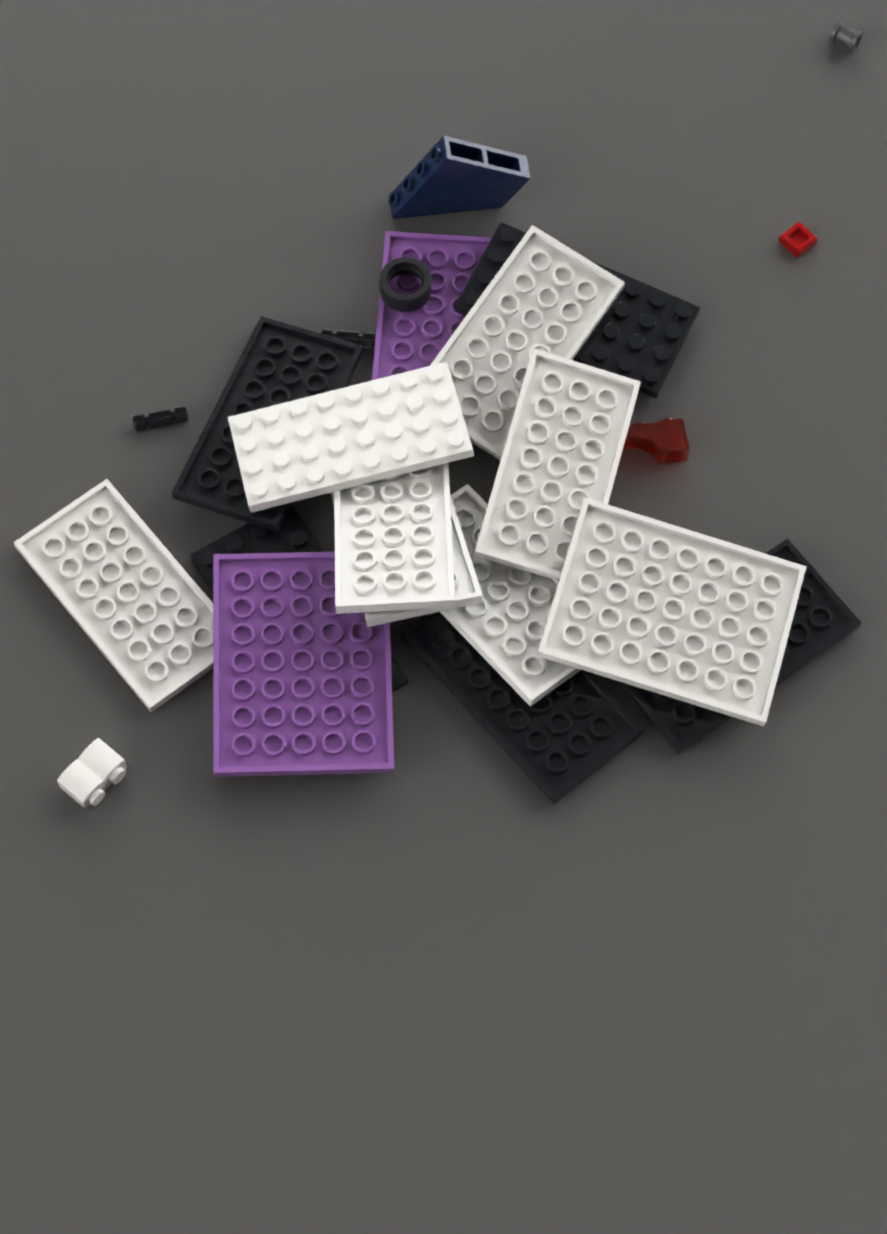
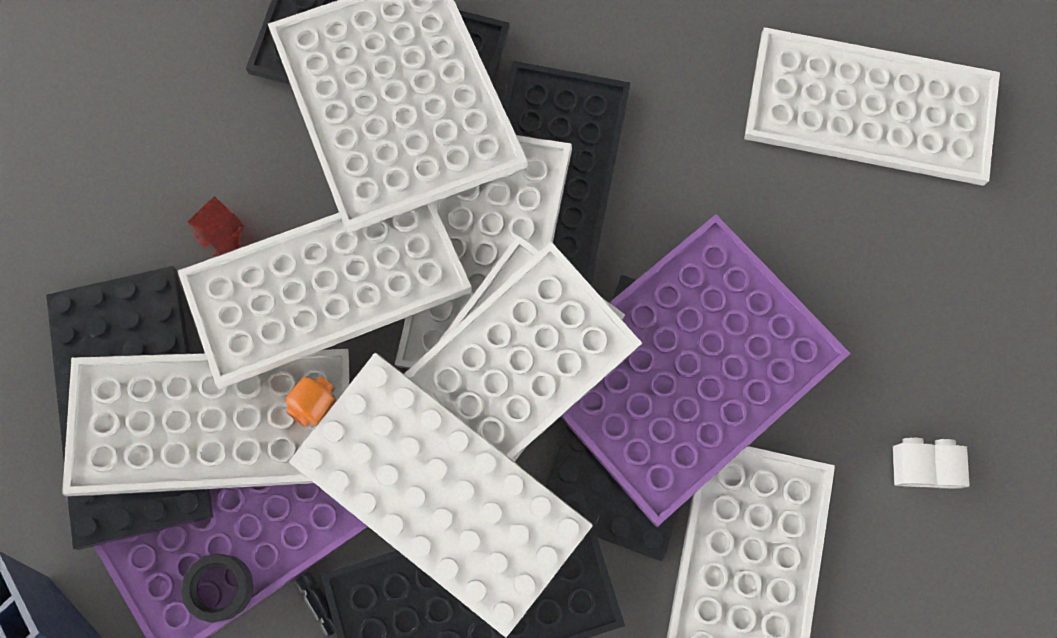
camera: 130 degrees left, 10 degrees up
(384, 975) = (873, 106): none -> white plate
(476, 399) = (310, 400): none -> orange head

